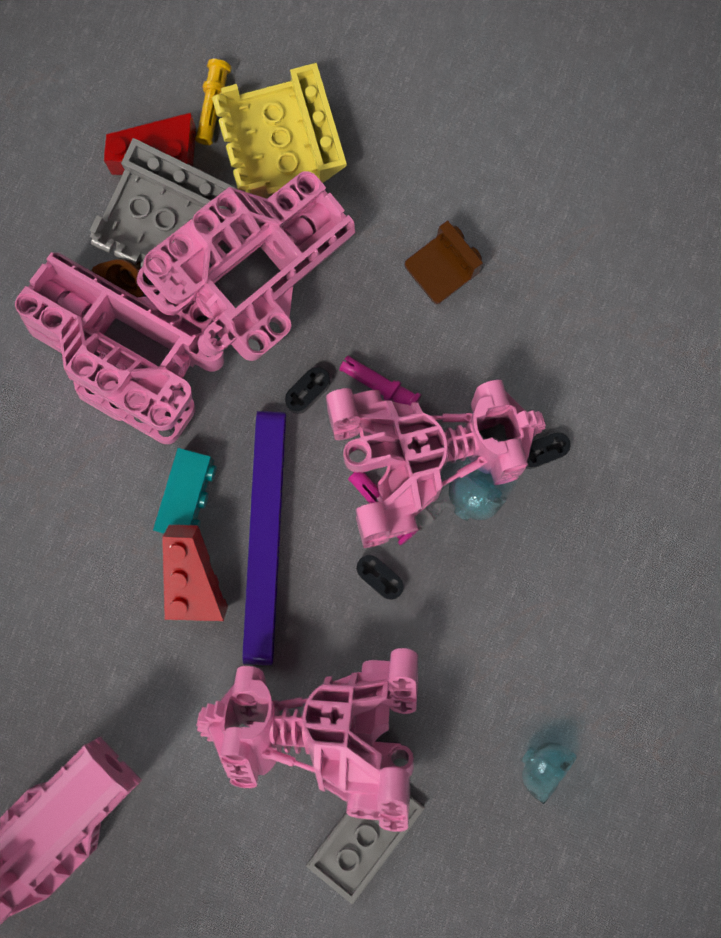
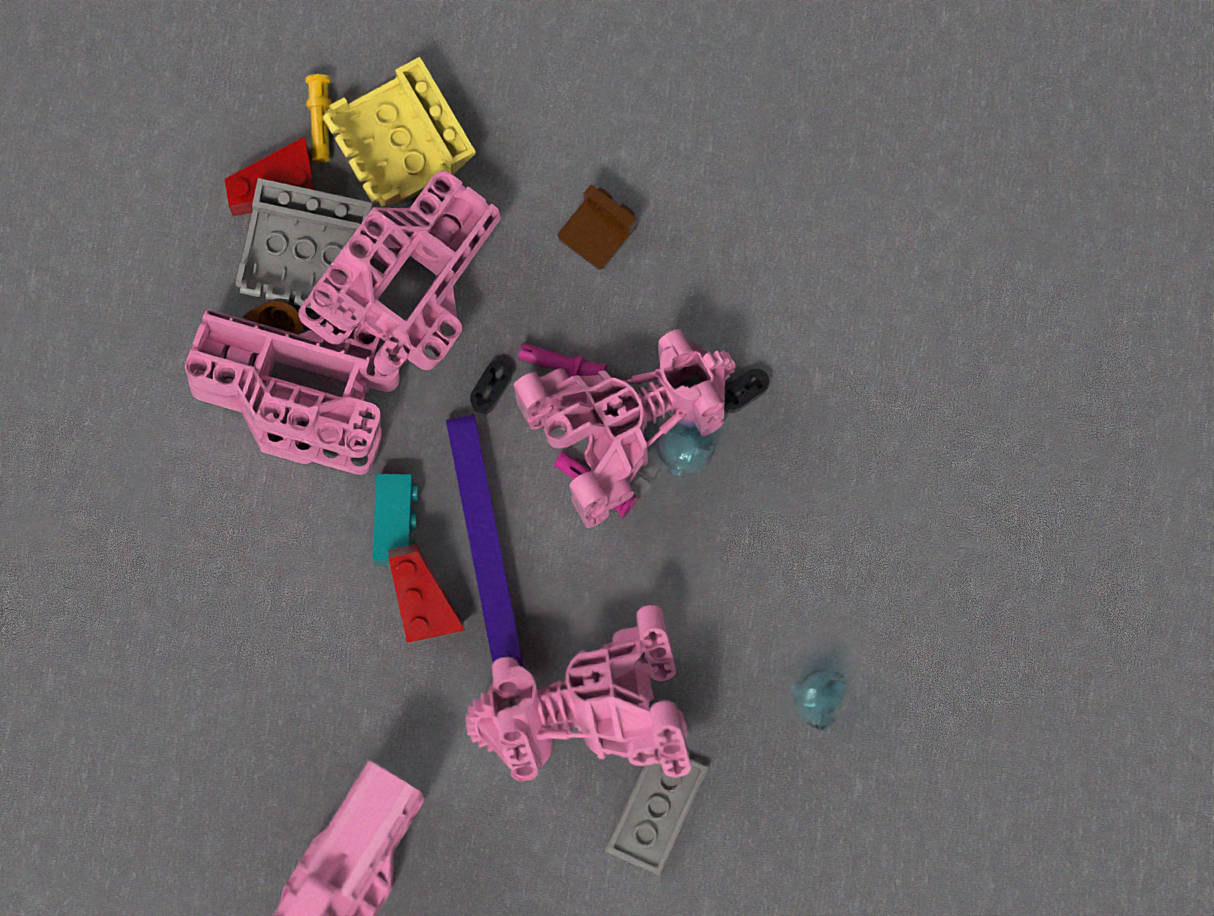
camera: 10 degrees left, 5 degrees down
(385, 572) = (613, 549): black beam -> none

